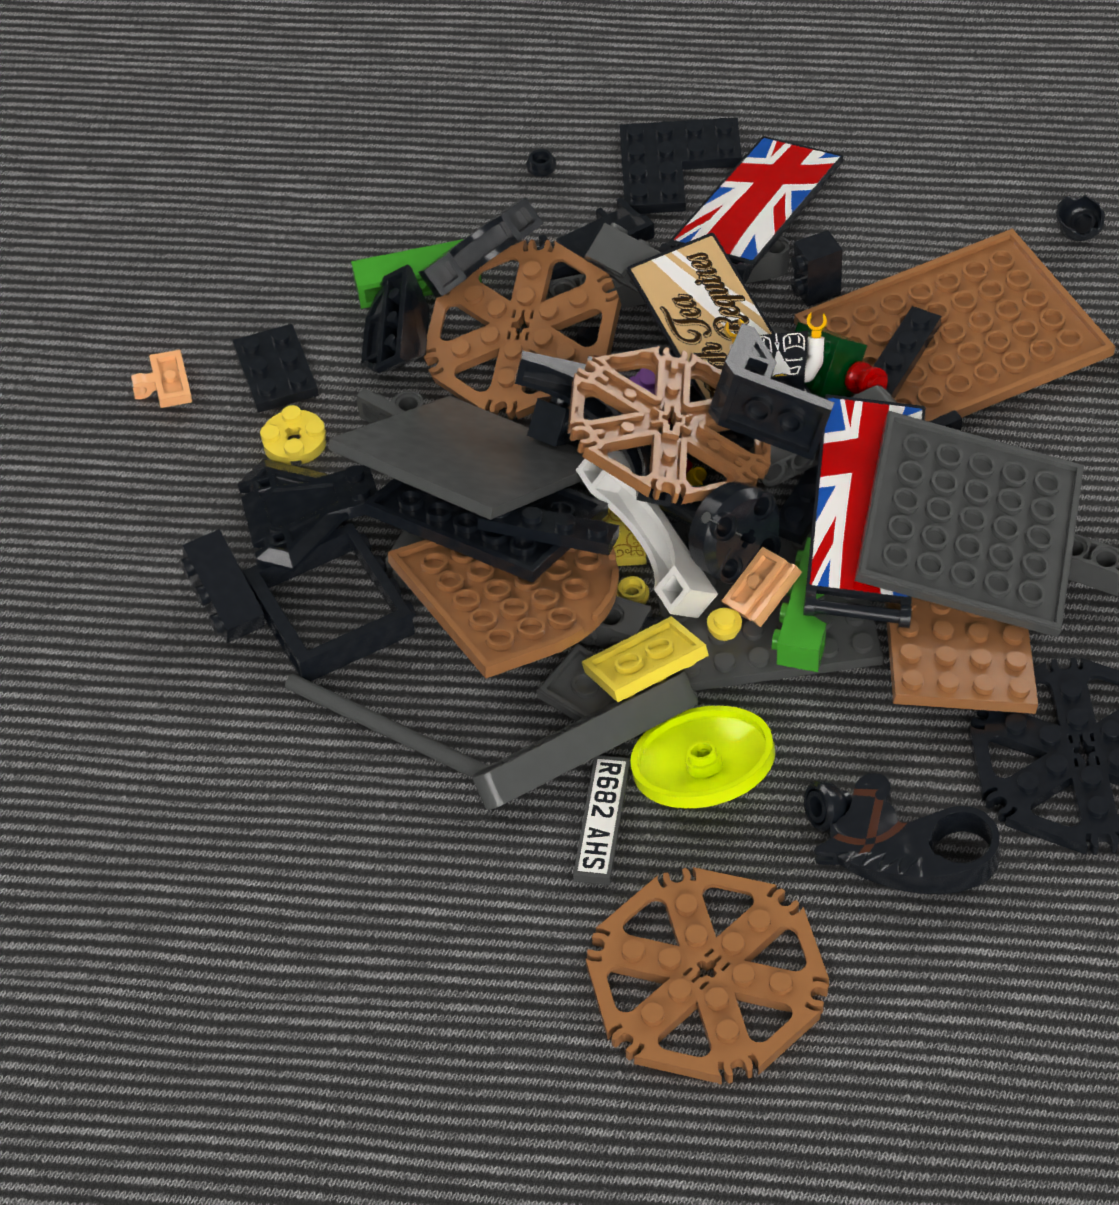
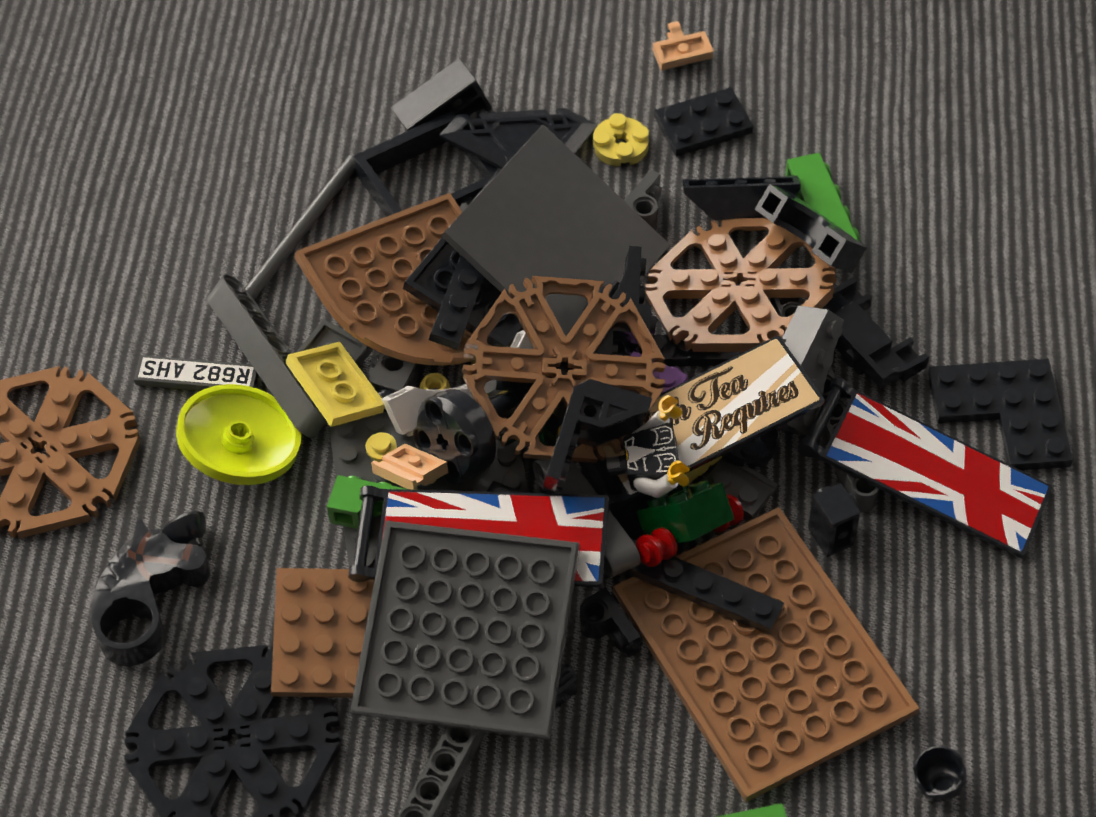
camera: 85 degrees right, 5 degrees up
(541, 163) = (983, 292): black plate -> none

